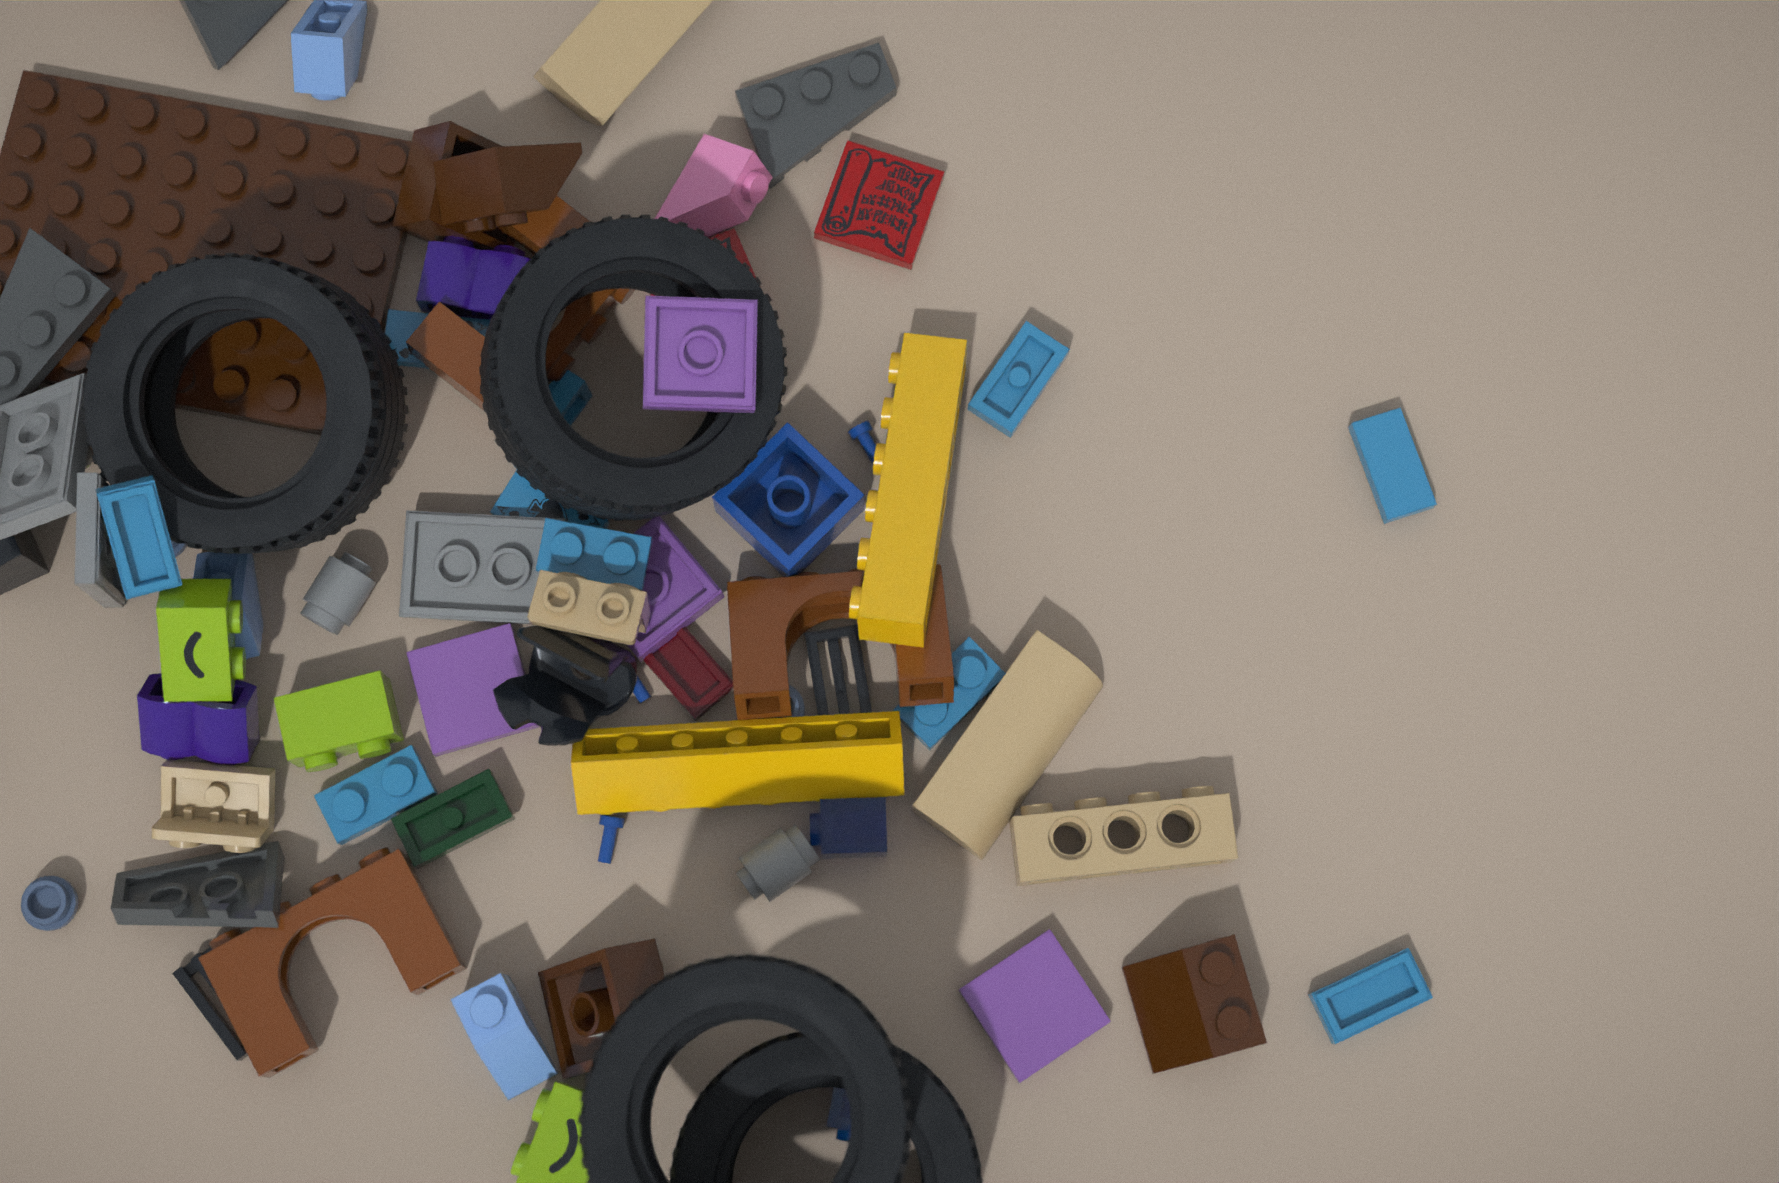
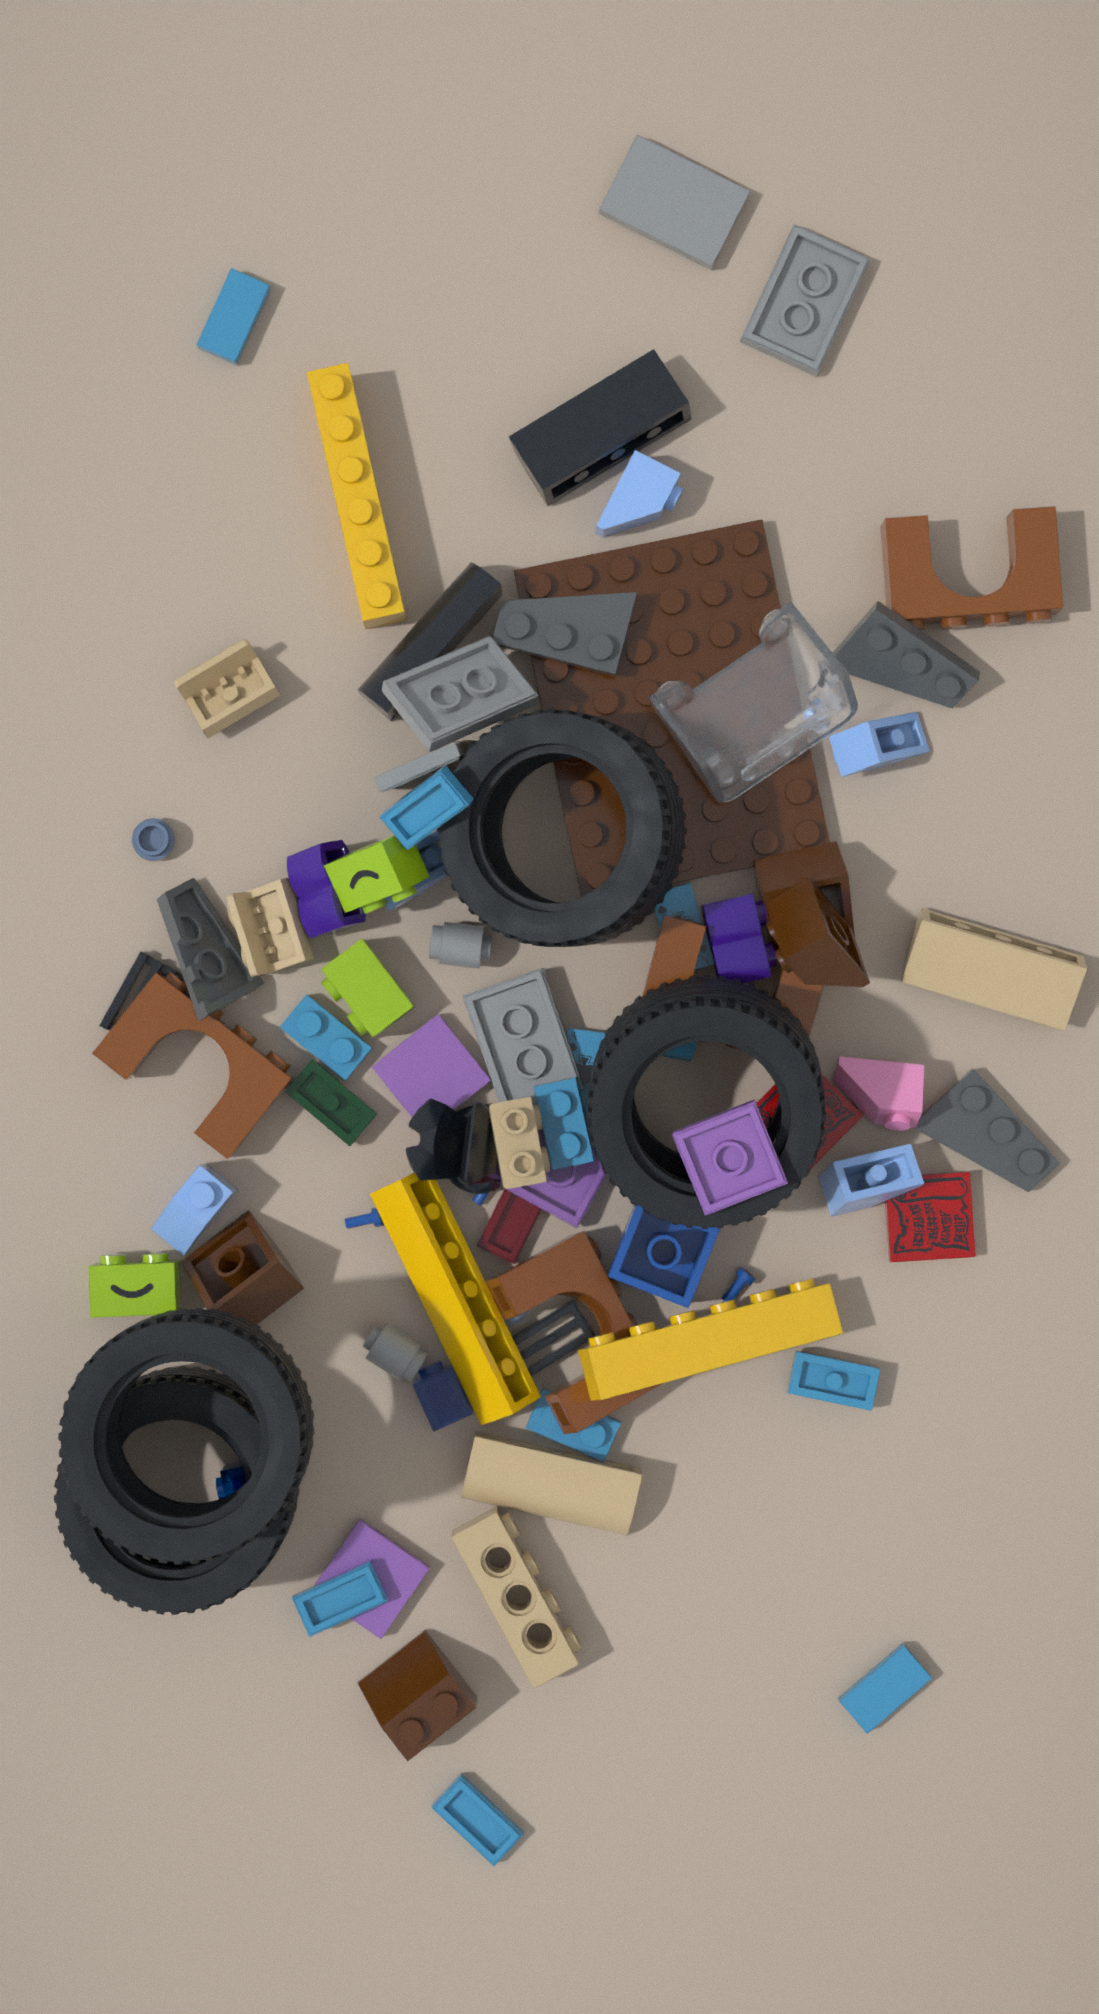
camera: 75 degrees right, 10 degrees up
(223, 141) = (759, 707): none -> clear windscreen
(806, 246) = (869, 1179): none -> light blue slope
(1041, 1049) = (340, 1598): none -> dark azure tile

